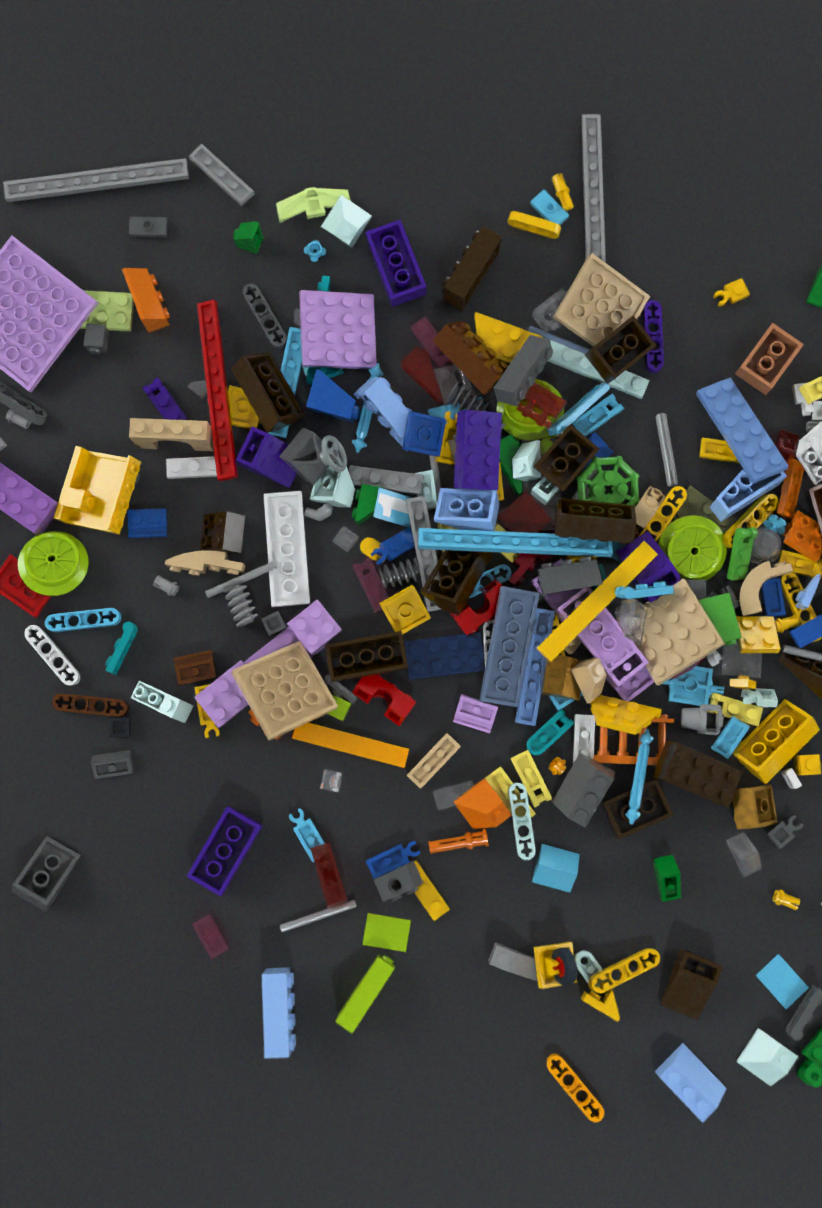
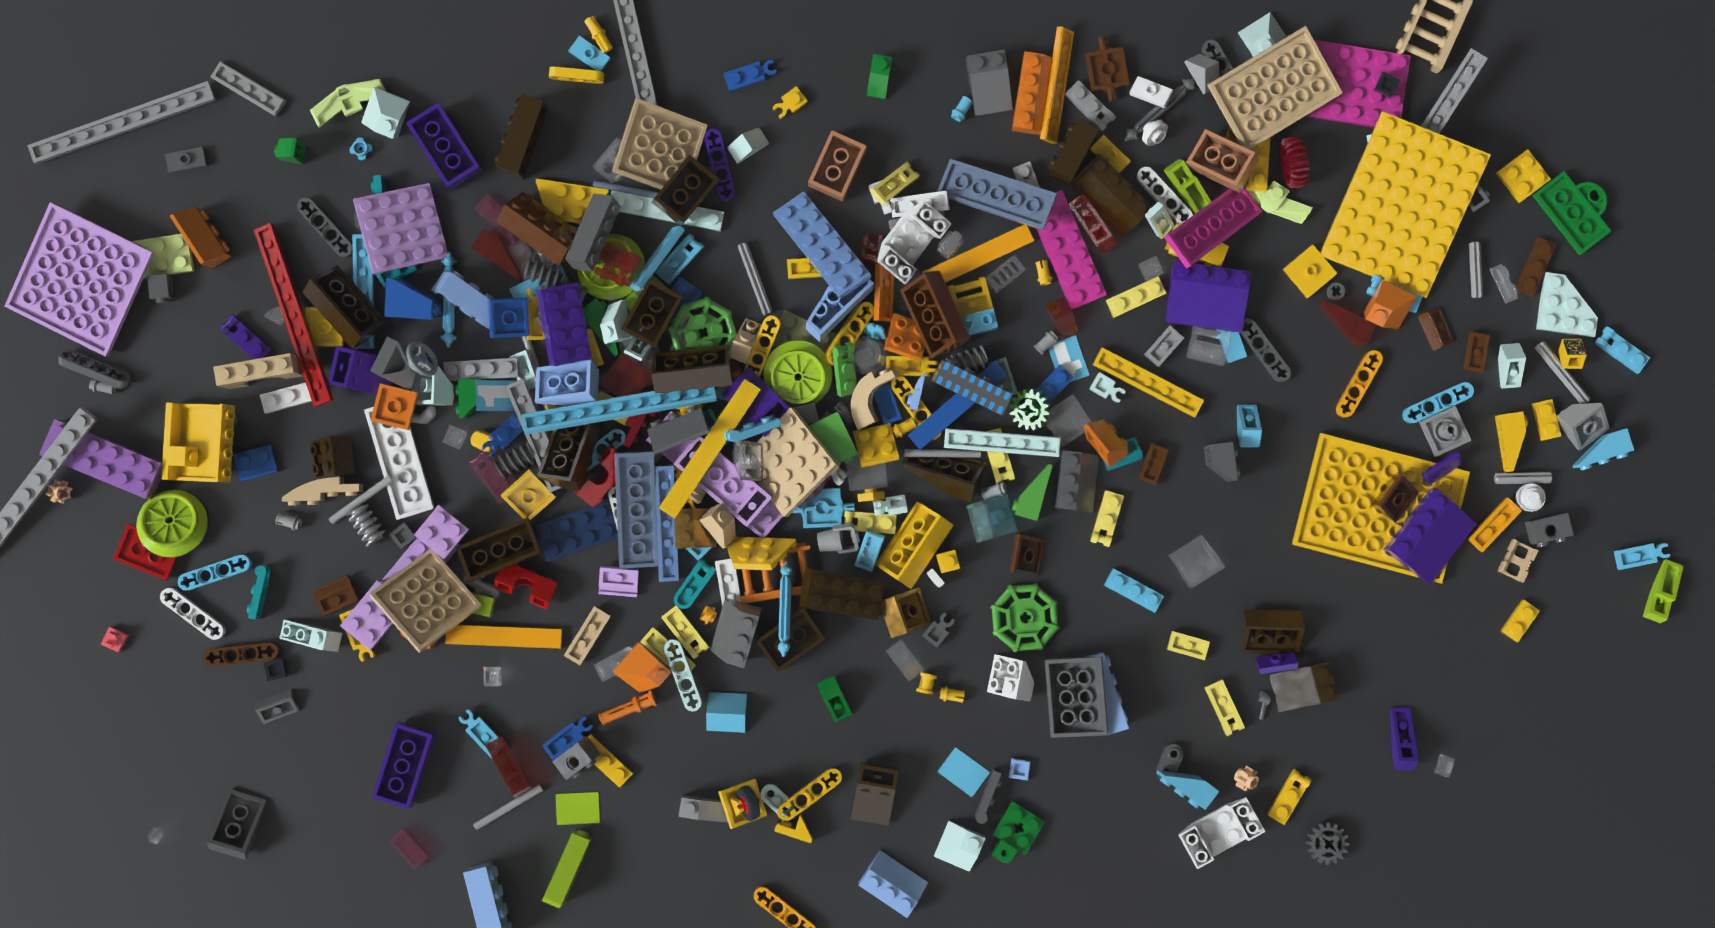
camera: 15 degrees left, 5 degrees up
(294, 496) = (394, 406): none -> orange plate
(683, 323) = (747, 144): none -> light aqua slope
(696, 259) = (748, 75): none -> blue plate
(762, 883) = (926, 683): none -> yellow bush

